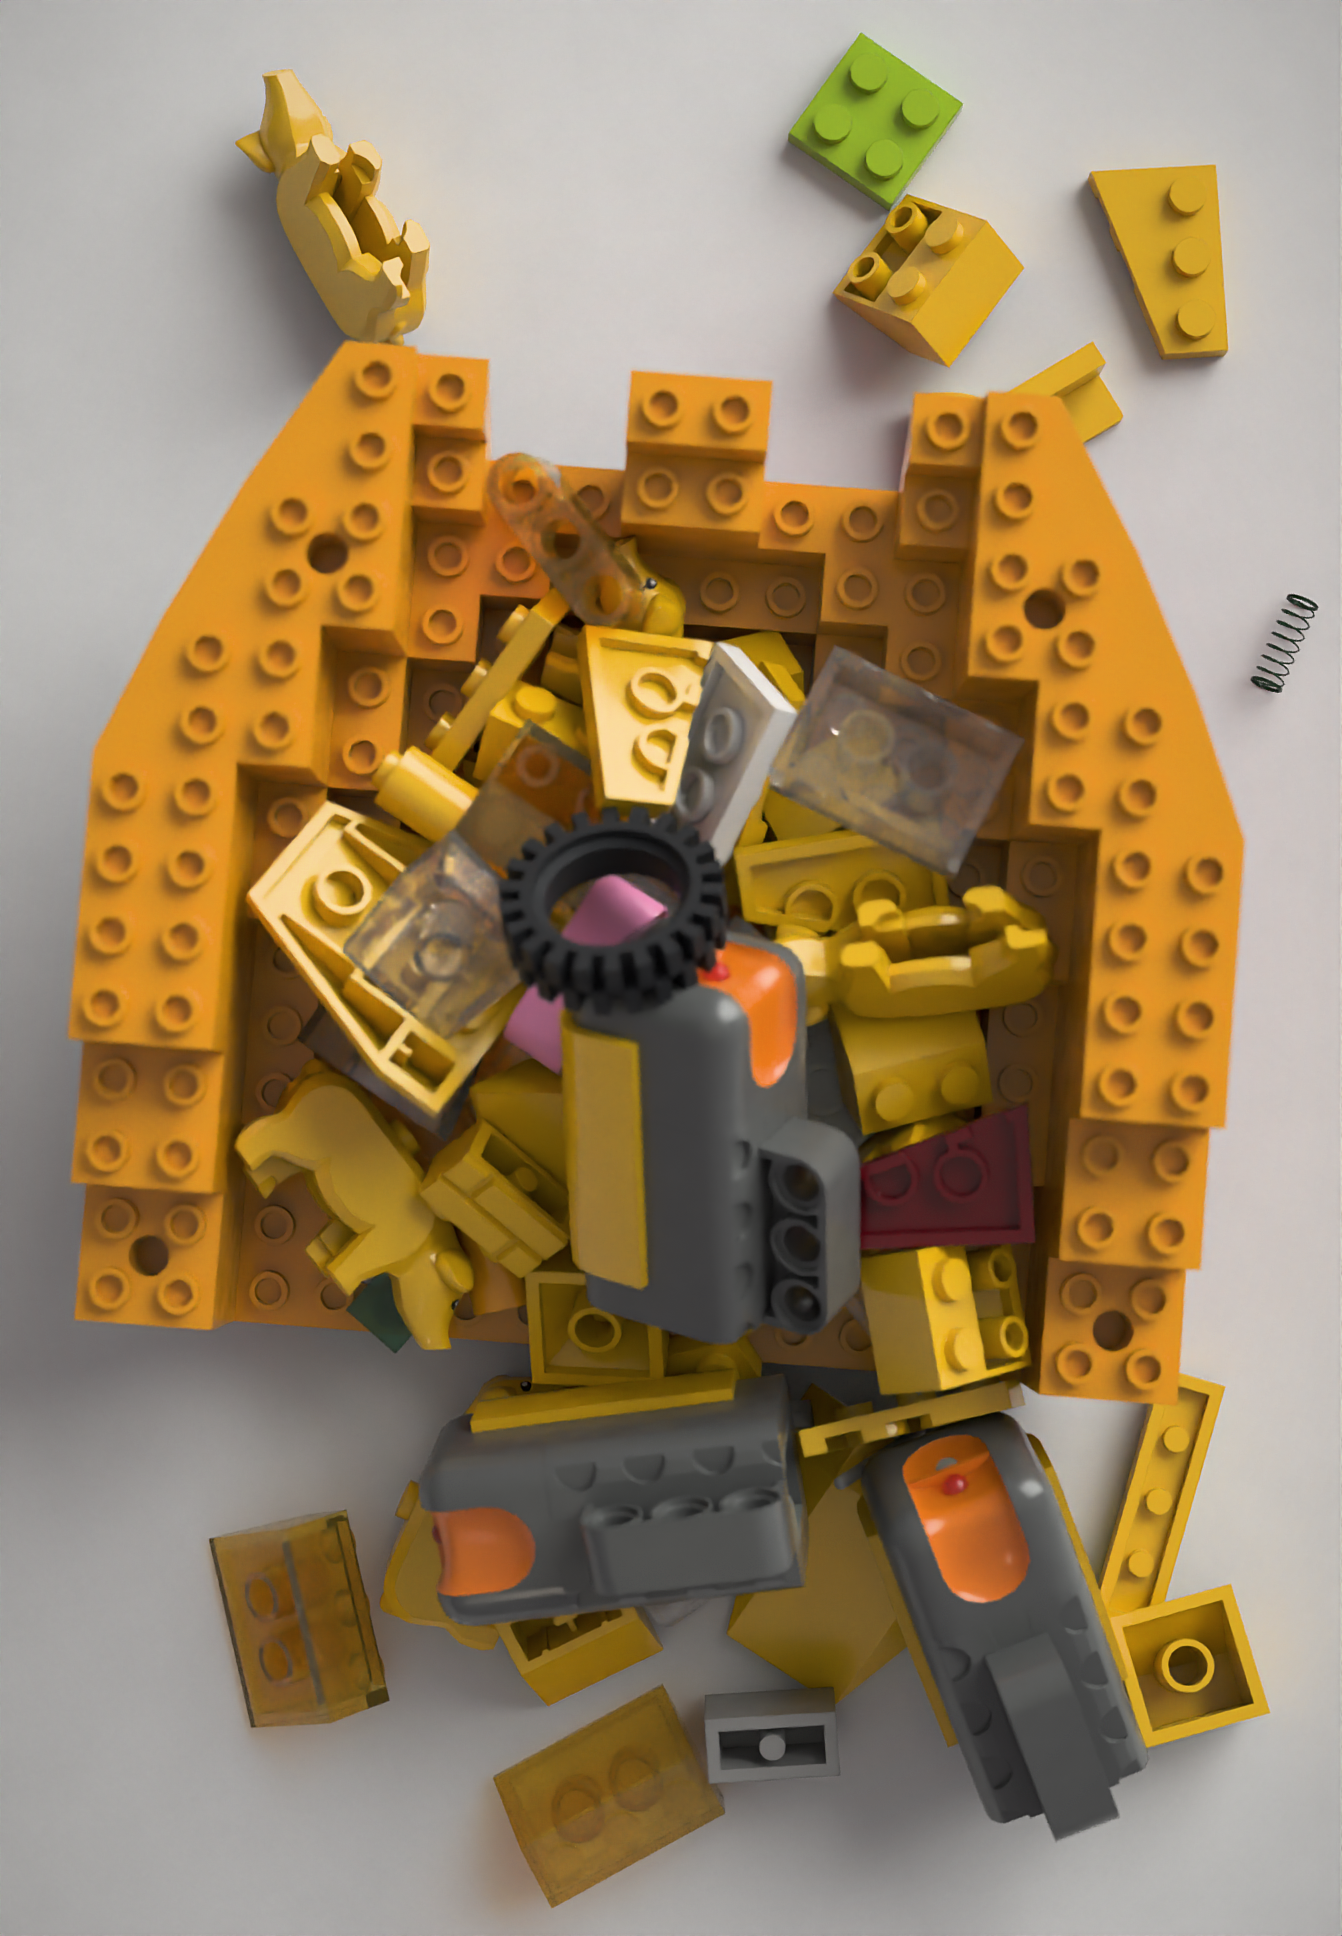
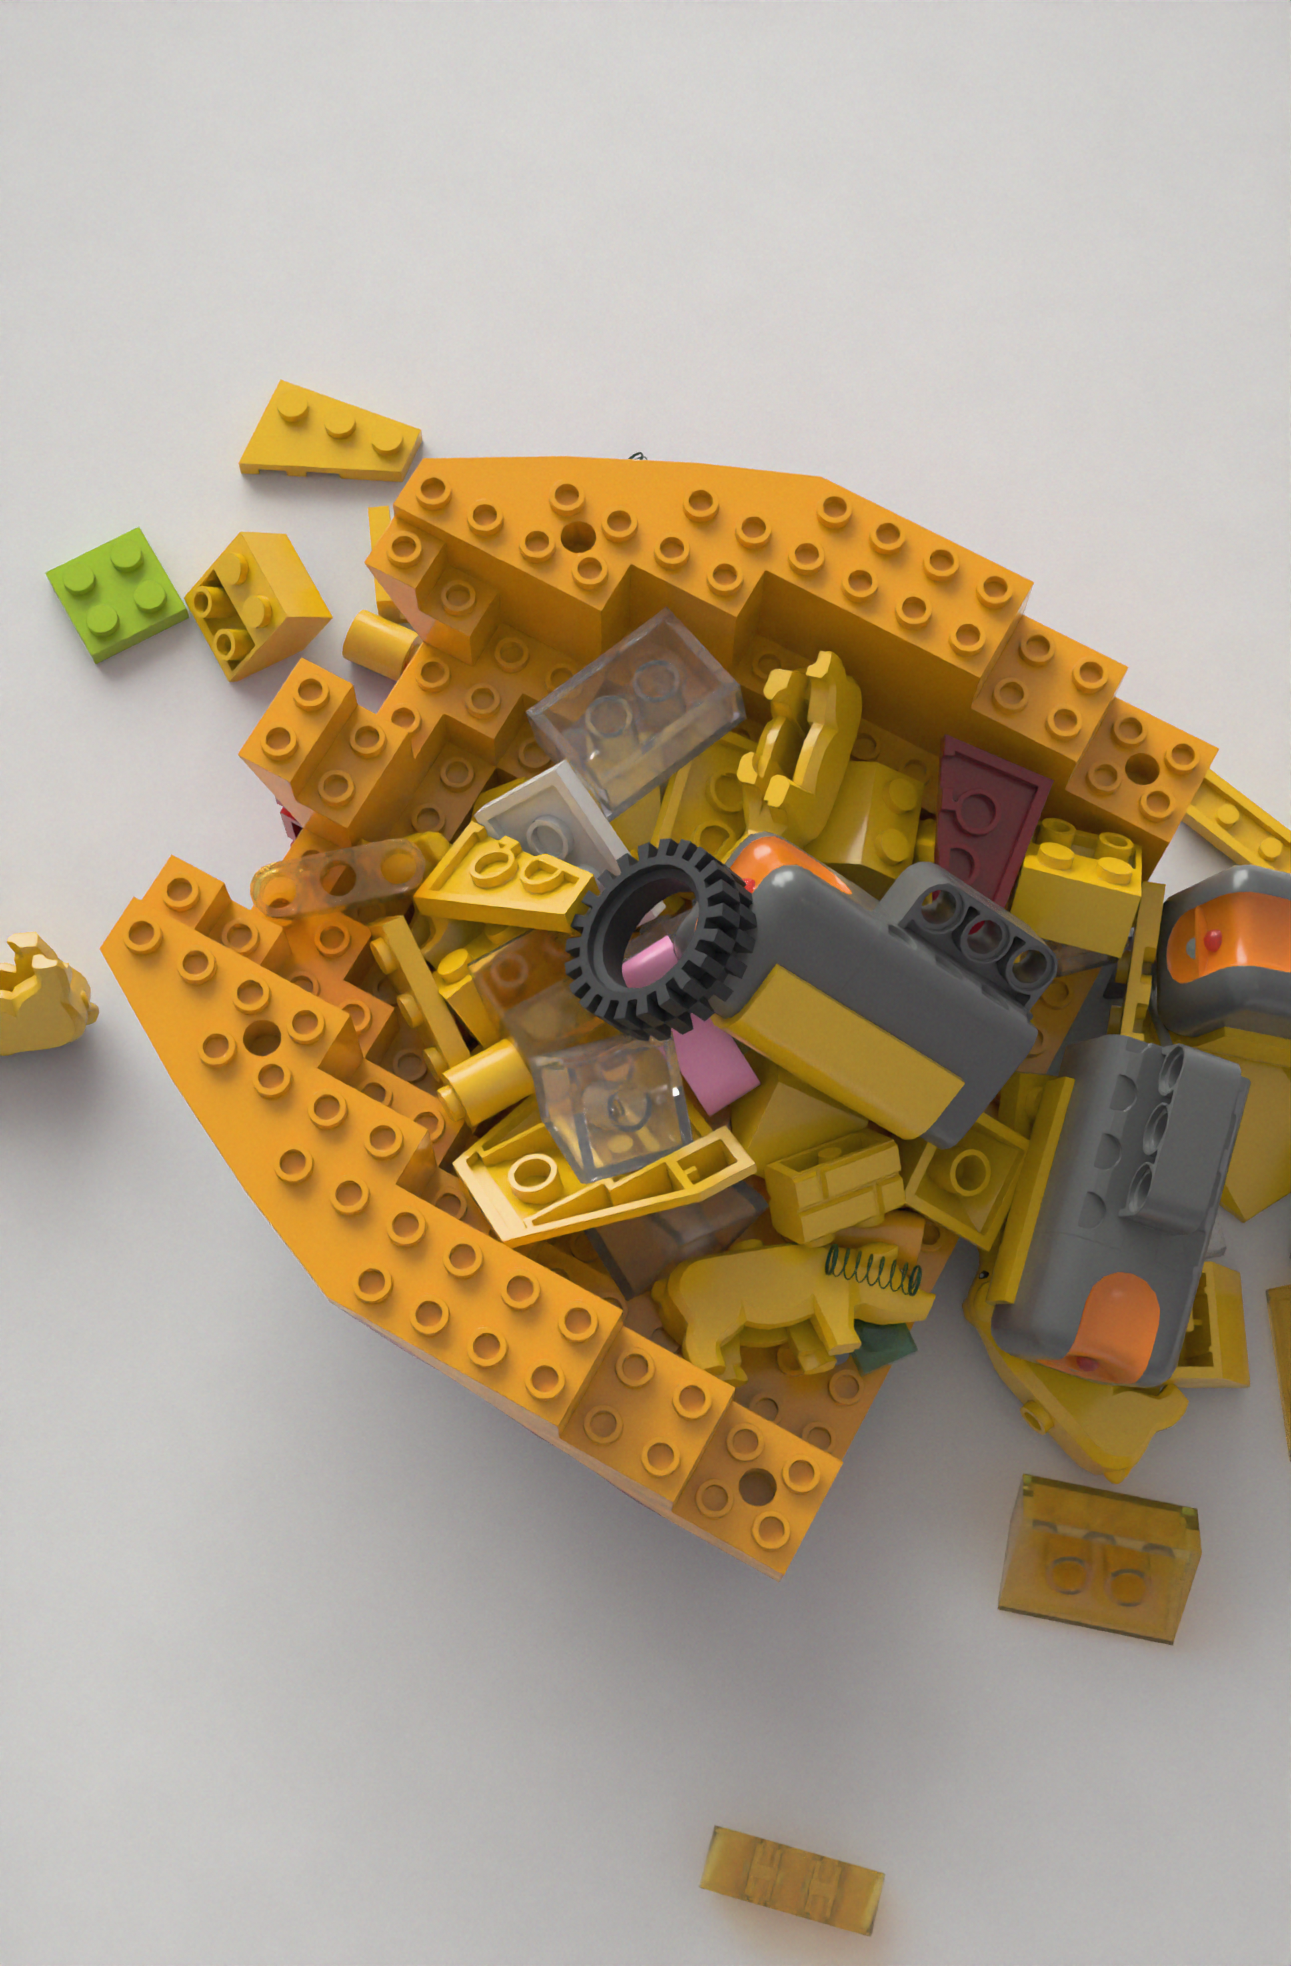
camera: 65 degrees left, 15 degrees down
(430, 1322) = (834, 1260): none -> dark green piece

